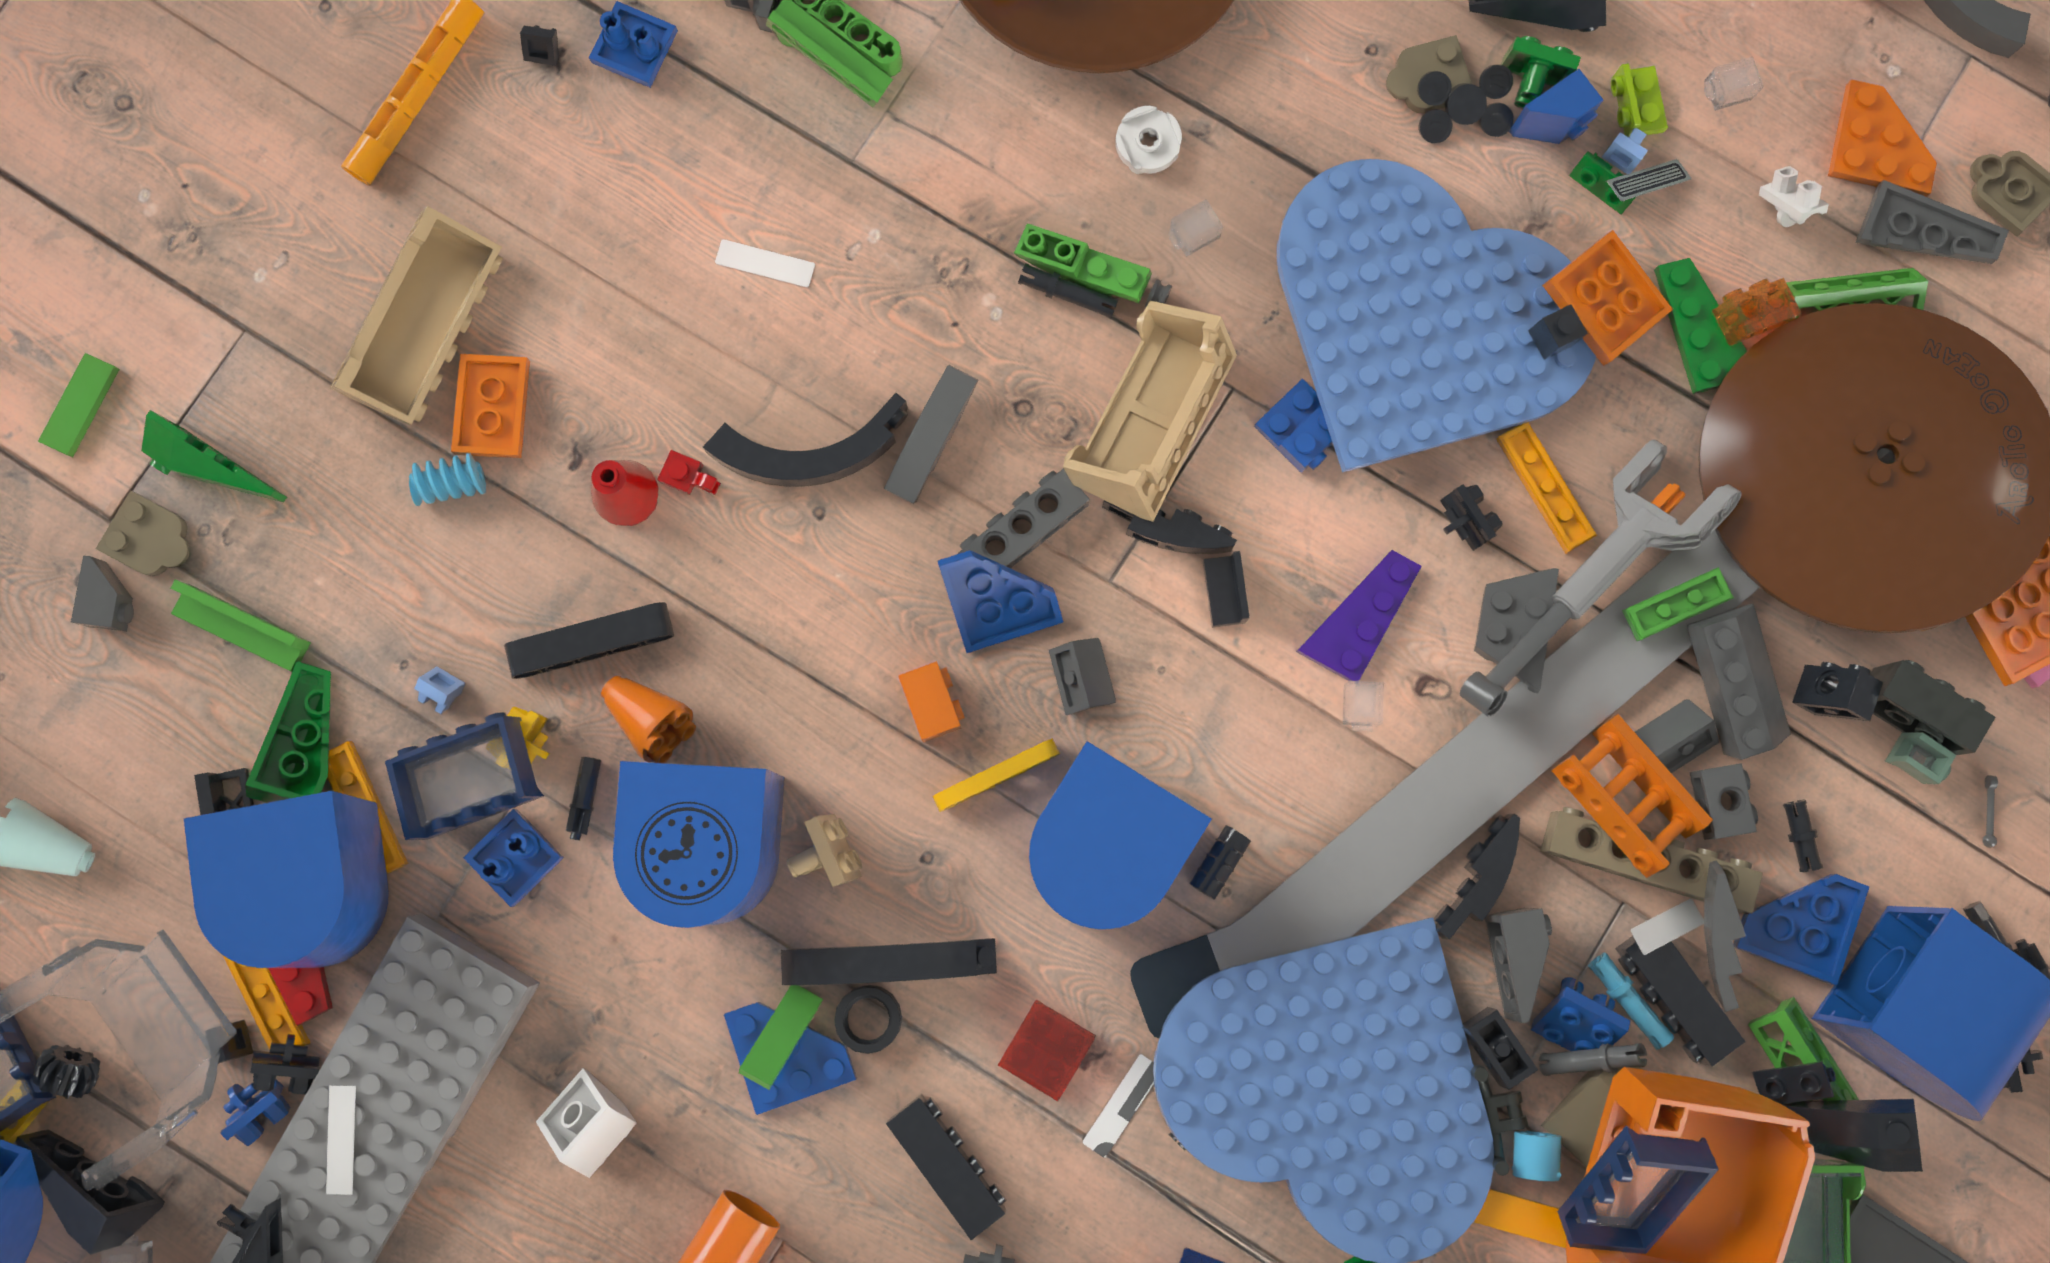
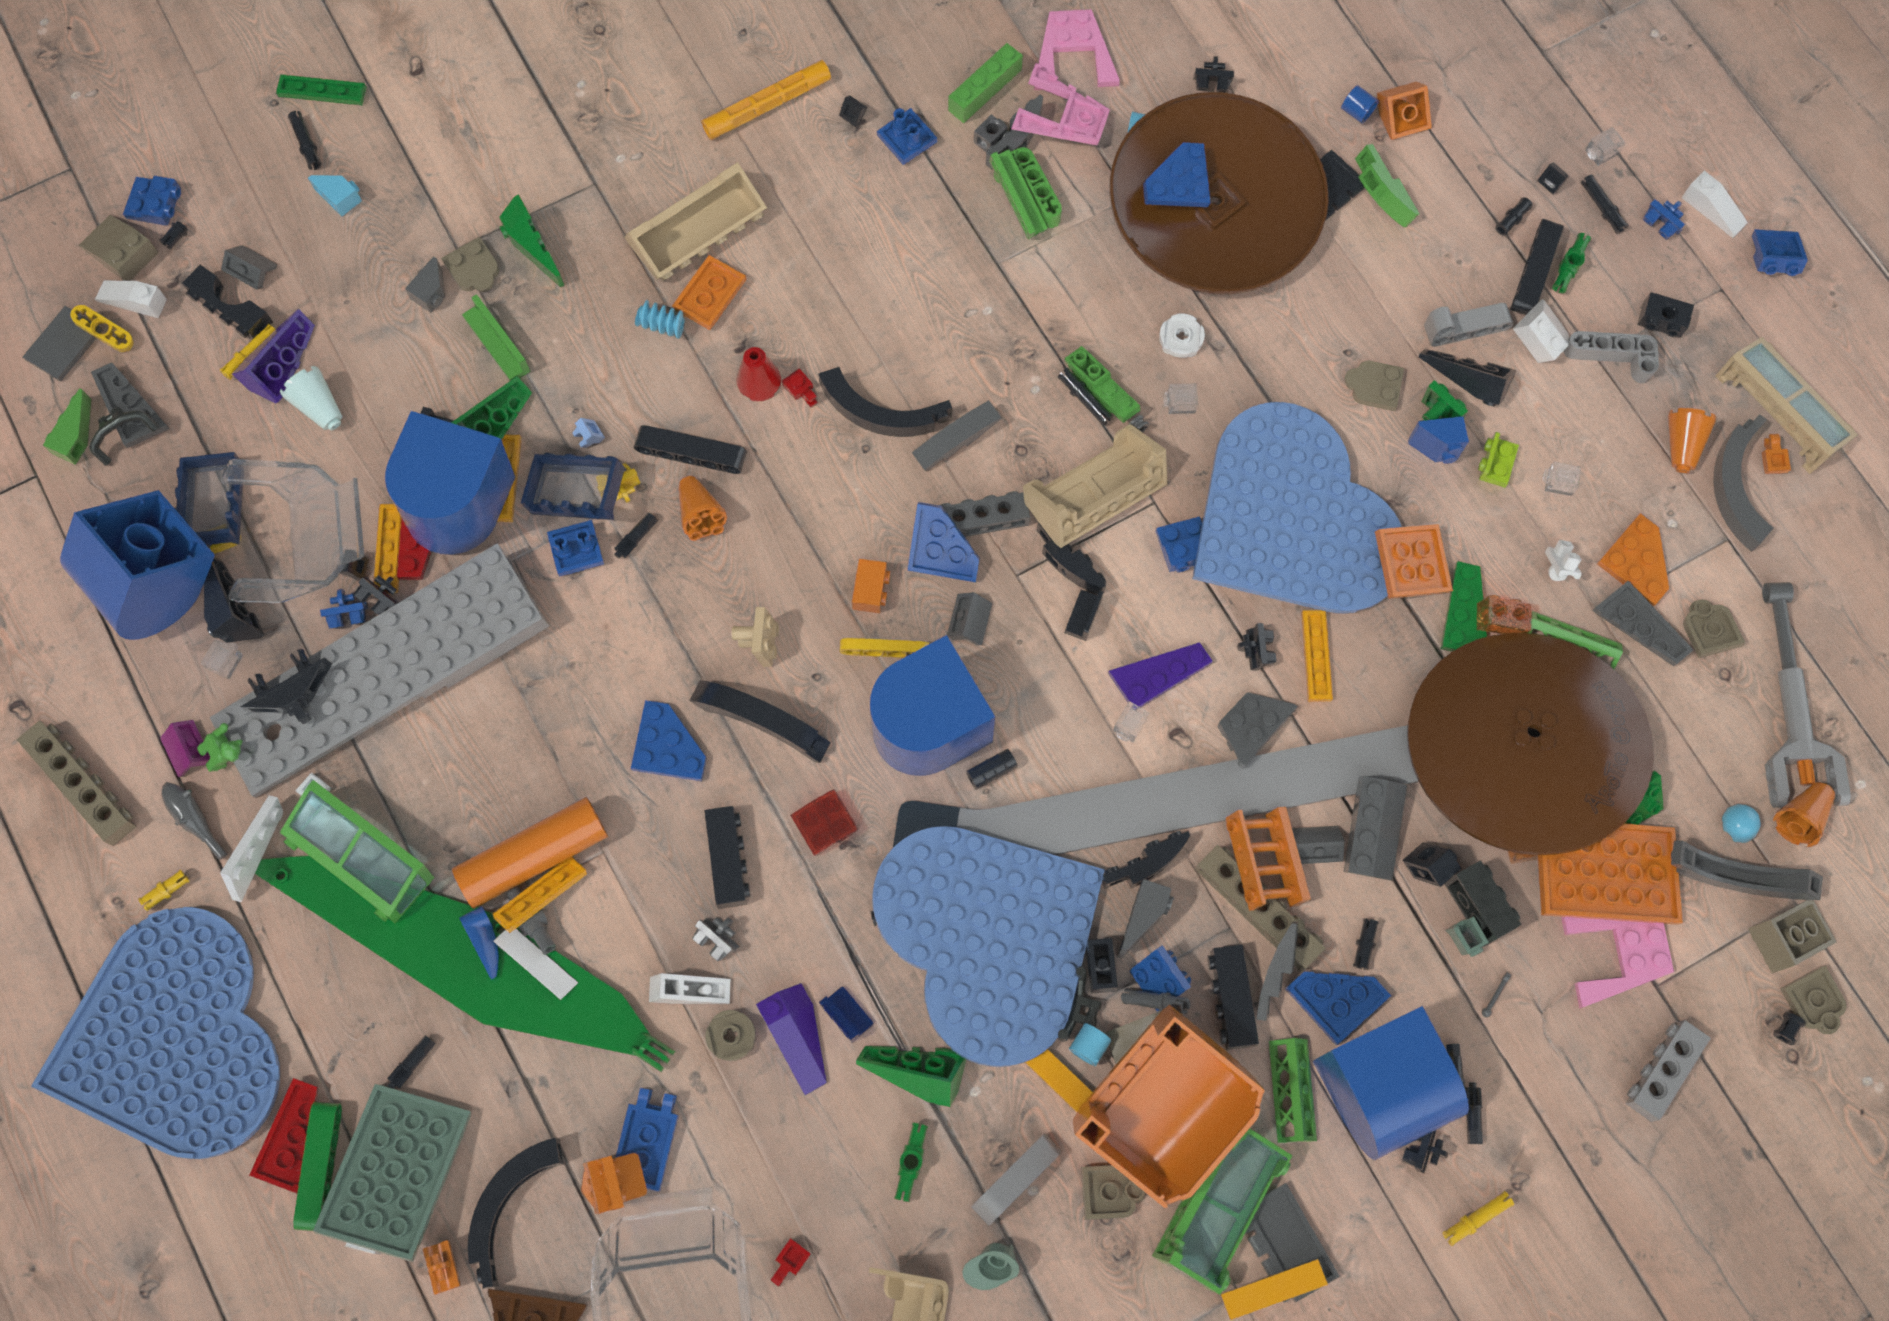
camera: 25 degrees right, 10 degrees down
(66, 1071) = (254, 531): black gear -> none
(78, 405) = (478, 177): bright green tile -> none
(340, 1140) = (385, 648): white sticker -> none
(585, 1124) = (529, 719): white slope -> none
(696, 840) = (691, 584): blue brick -> none
(765, 263) = (914, 294): white sticker -> none
(780, 1036) = (671, 727): bright green tile -> none
(842, 1024) = (721, 731): black tyre -> none
(1121, 1107) = (849, 883): white sticker -> none
(1465, 103) = (1387, 408): black piece -> none
(1557, 331) = (1369, 562): black brick -> none
(1593, 174) = (1447, 491): green hinge -> none
(1621, 989) = (1201, 985): medium azure pin -> none
(1626, 151) = (1473, 484): light blue tile -> none
(1636, 1192) = (1135, 1081): dark blue window -> none
(1639, 527) = (1359, 702): light grey piece -> none
(1649, 180) = (1478, 507): sticker -> none
(1667, 926) = (1246, 948): white sticker -> none
(1677, 604) = (1358, 761): bright green tile -> none
(1708, 789) = (1317, 908): dark grey brick -> none
(1795, 1082) = (1279, 1084): black hinge -> none
(1864, 1132) = (1305, 1137): black wedge -> none

